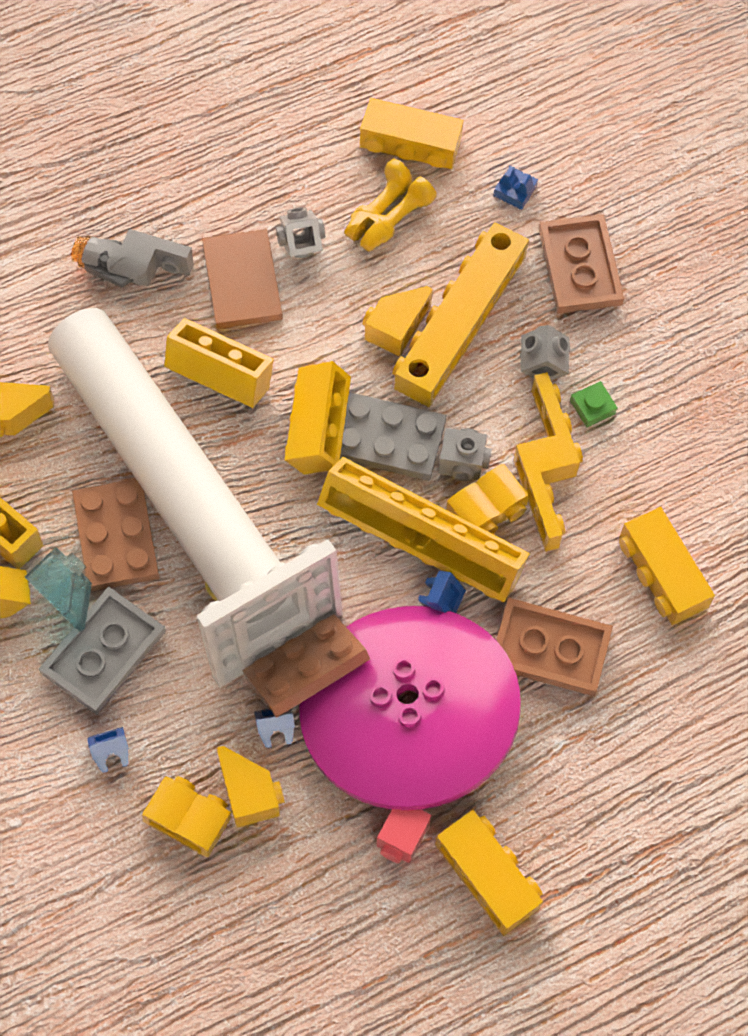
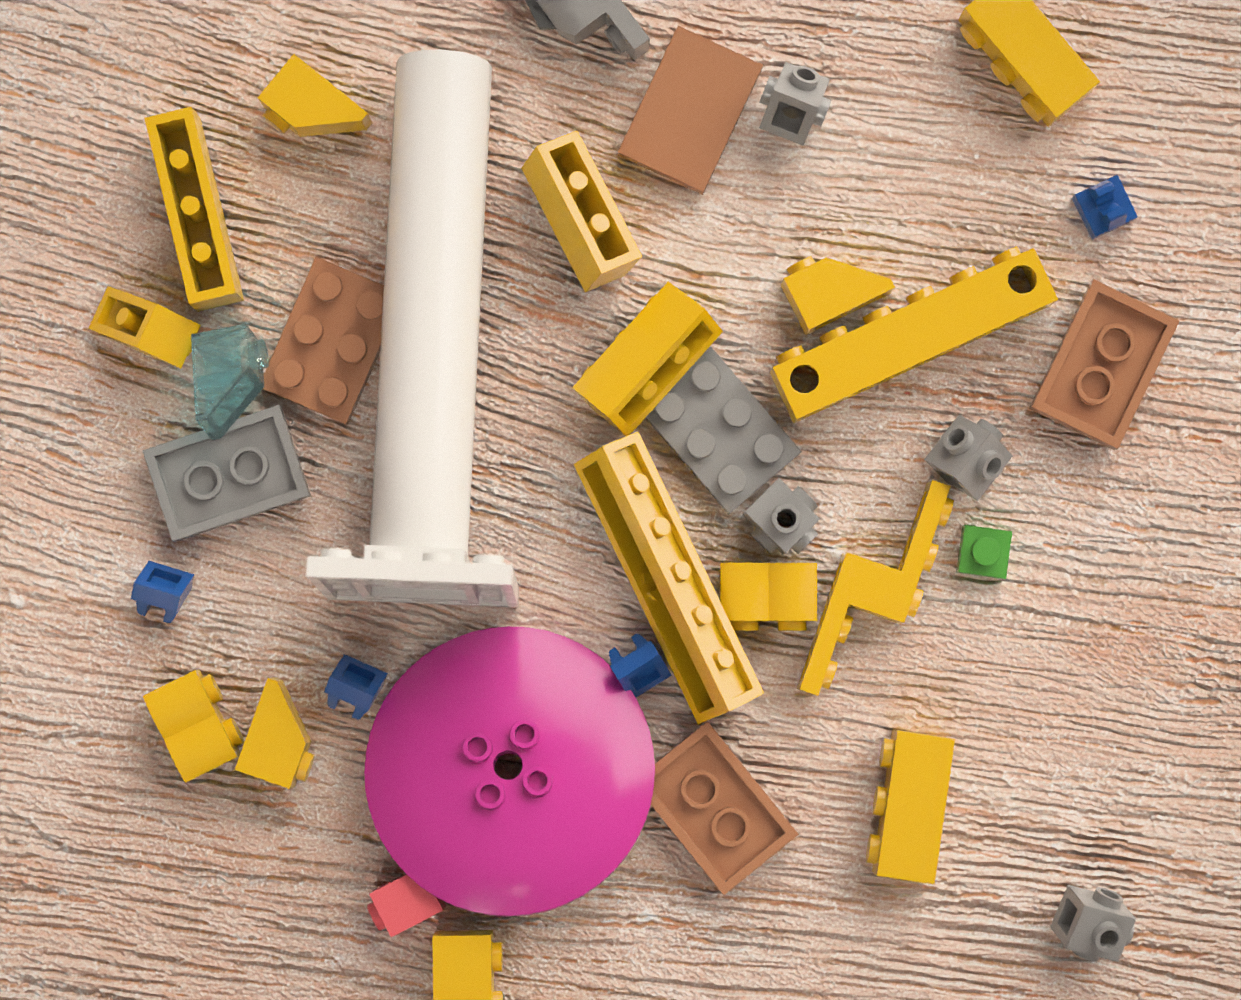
camera: 35 degrees right, 20 degrees up
(305, 665) = (428, 648): nougat plate -> none
(380, 228) = (897, 162): yellow piece -> none

